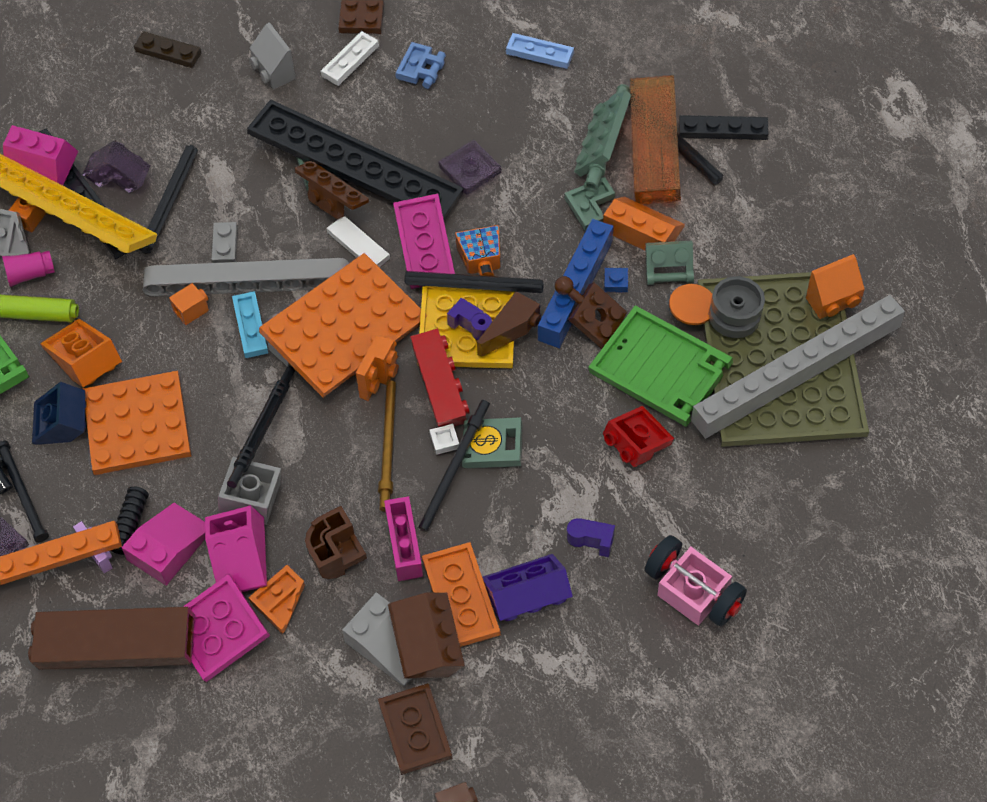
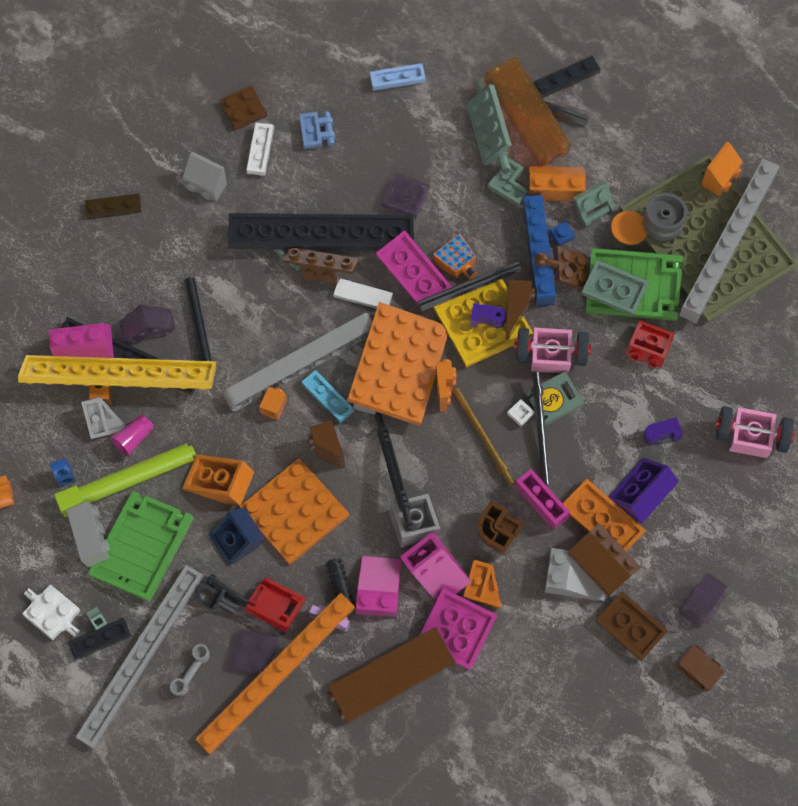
camera: 30 degrees left, 10 degrees up
(46, 501) = (271, 602): none -> red container
(212, 365) = (326, 443): none -> reddish brown slope
(224, 242) = (265, 342): light grey plate -> none
(439, 379) = (492, 371): red brick -> none
(513, 740) = (706, 596): none -> clear purple brick
(518, 386) = (552, 349): none -> bright pink brick
(632, 356) = (615, 288): none -> sand green plate

